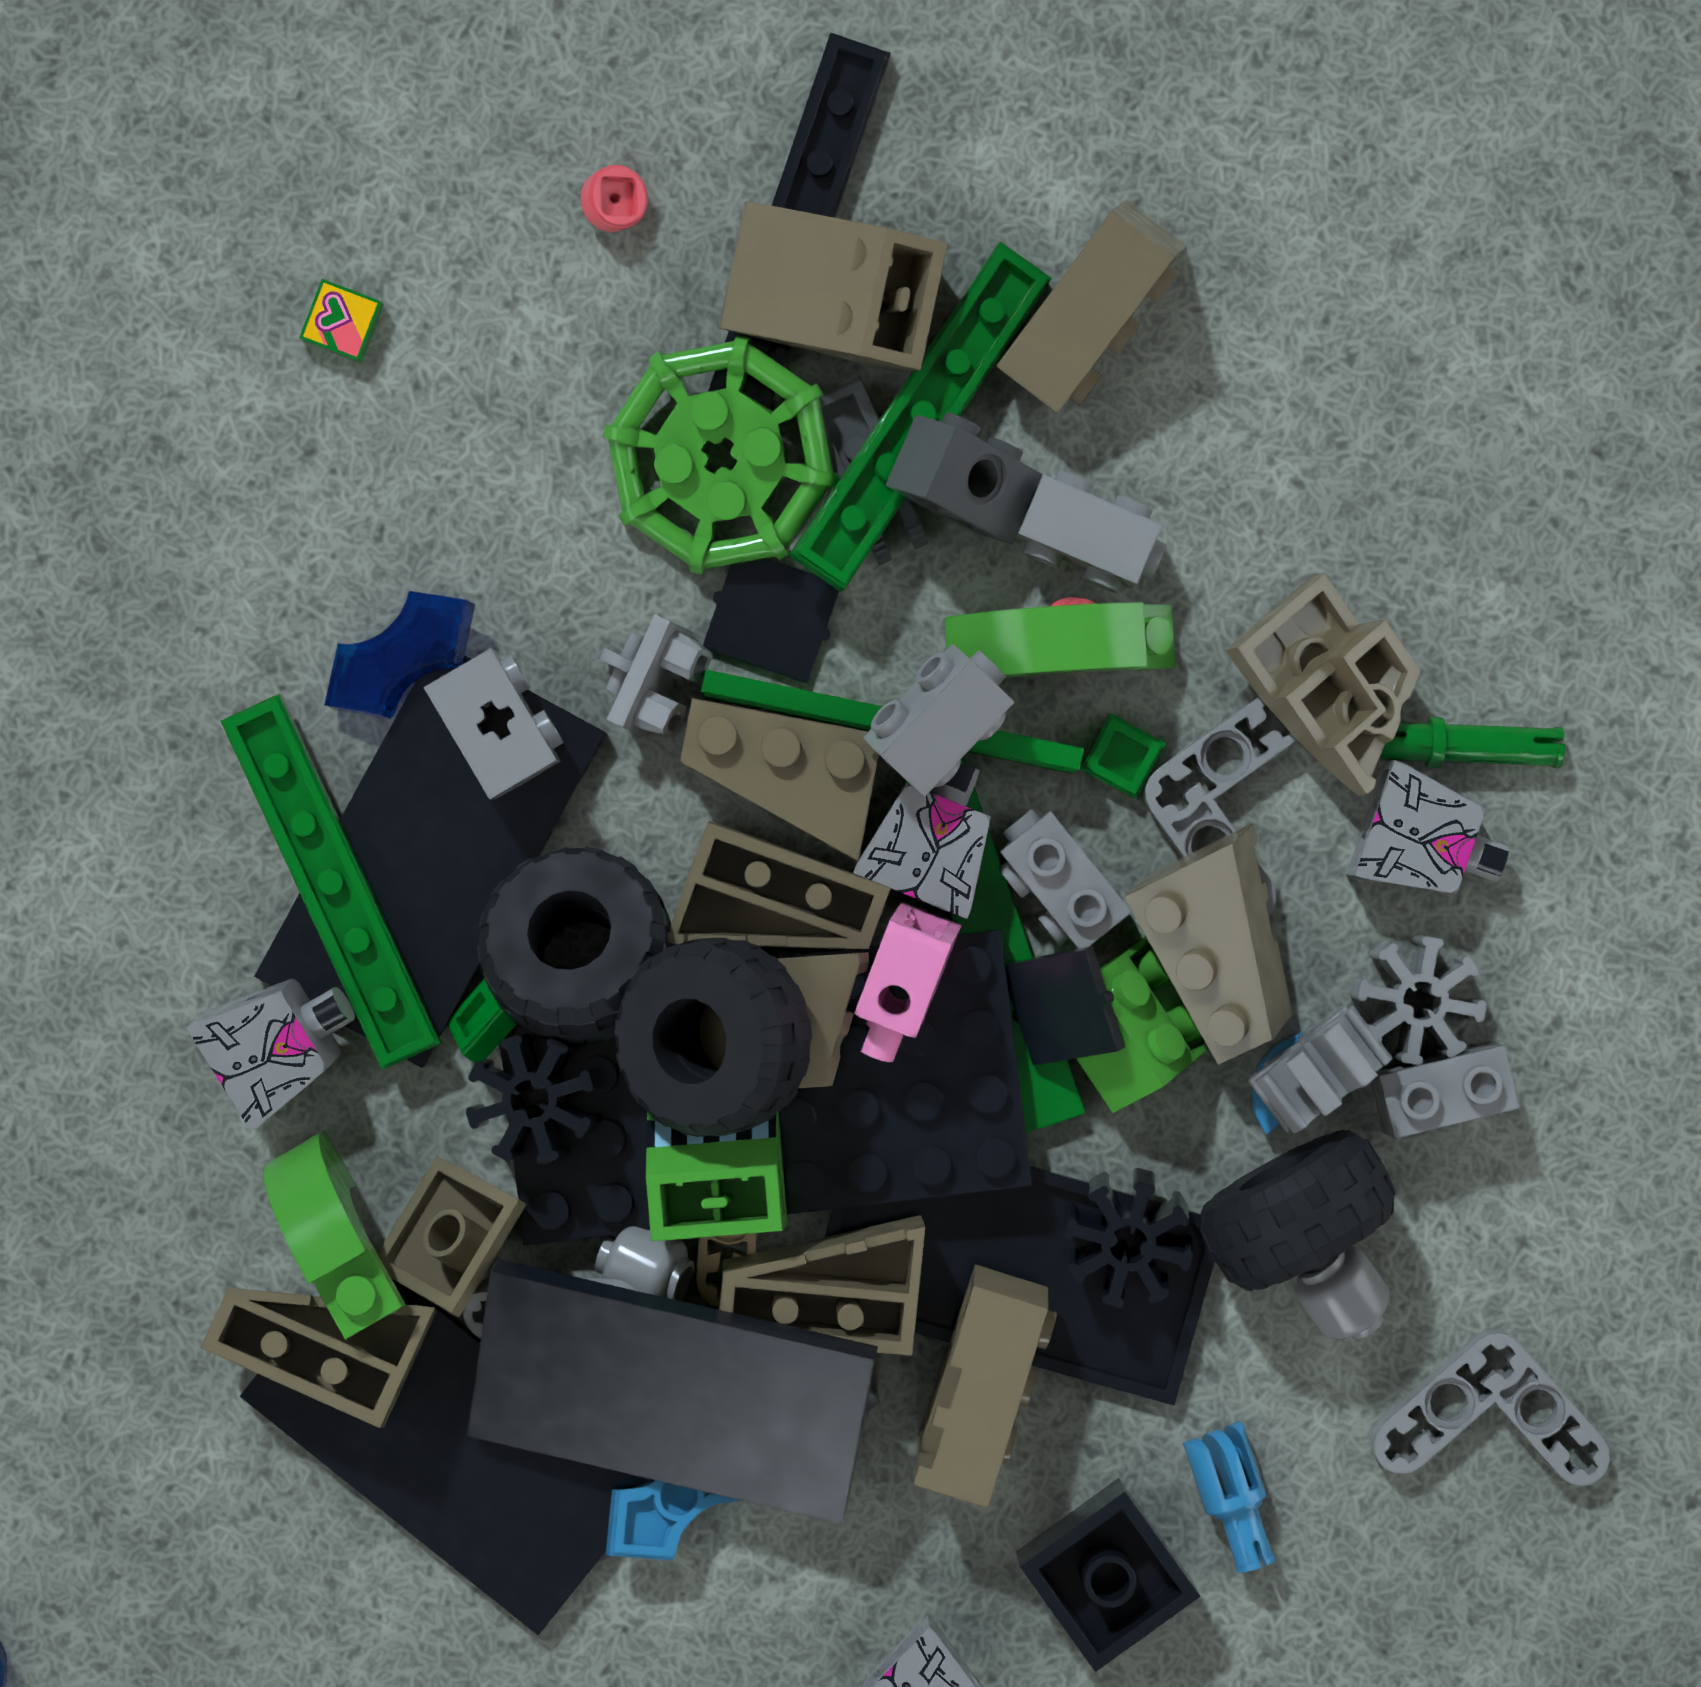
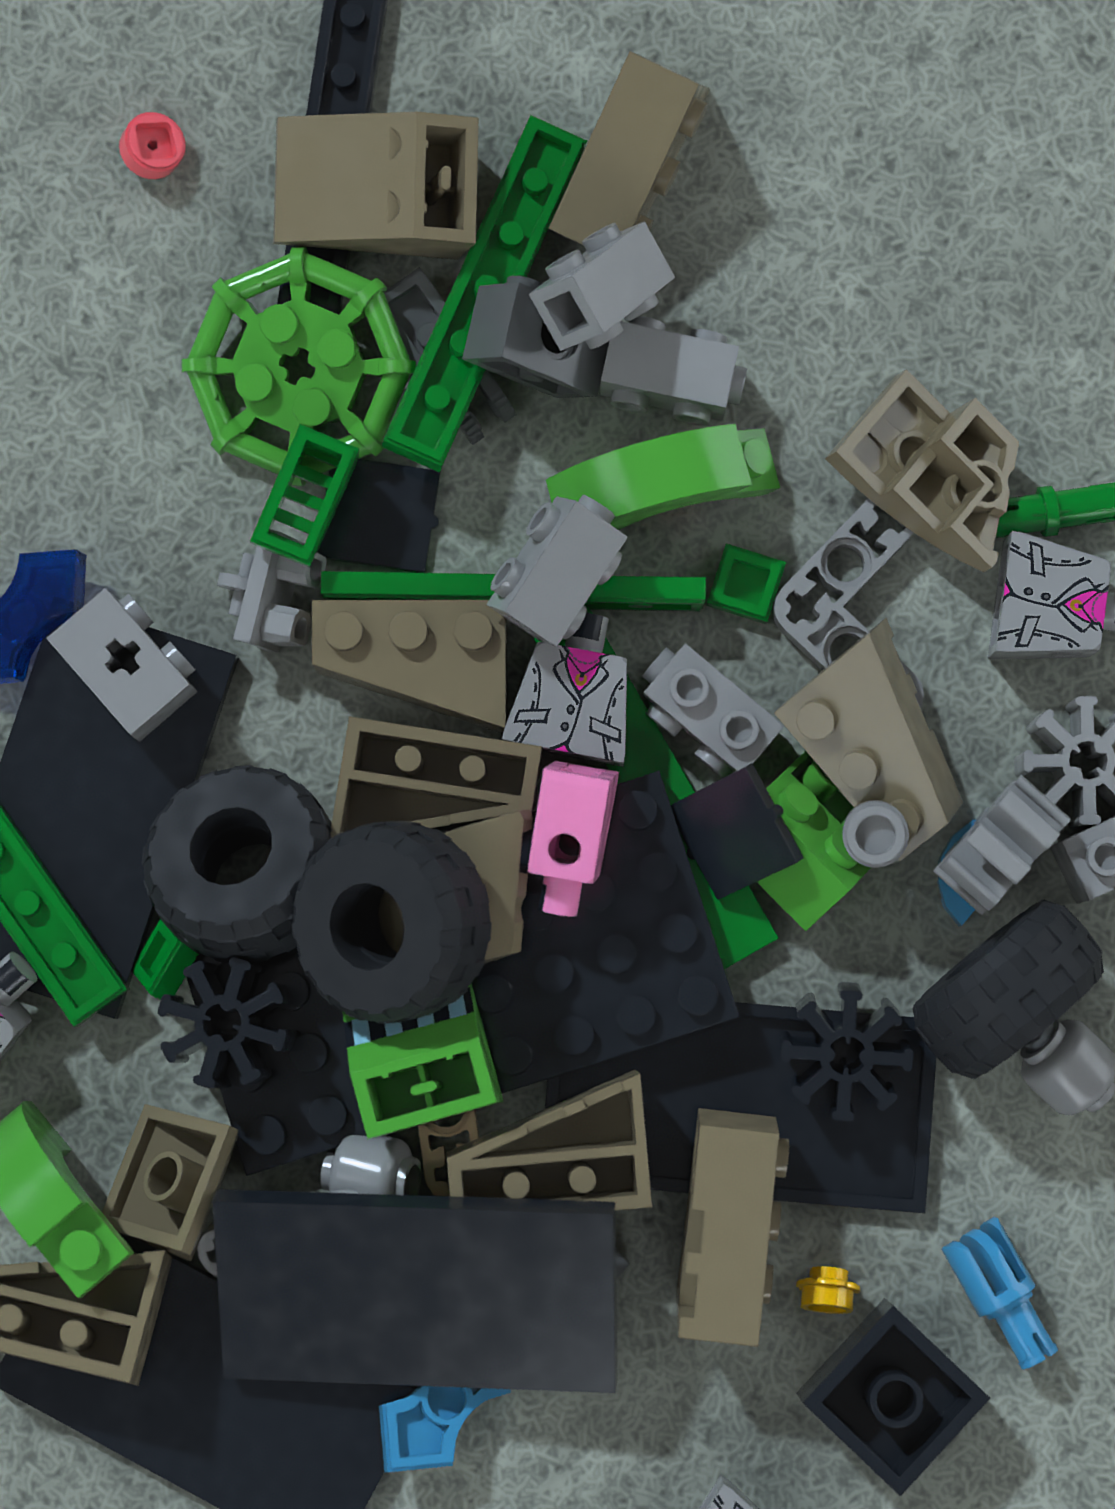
camera: 10 degrees left, 5 degrees down
(732, 549) = (324, 449): none -> green slope
(1038, 443) = (602, 286): none -> light grey brick
(1065, 1461) = (827, 1290): none -> yellow plate
(1199, 1037) = (875, 833): none -> light grey tile

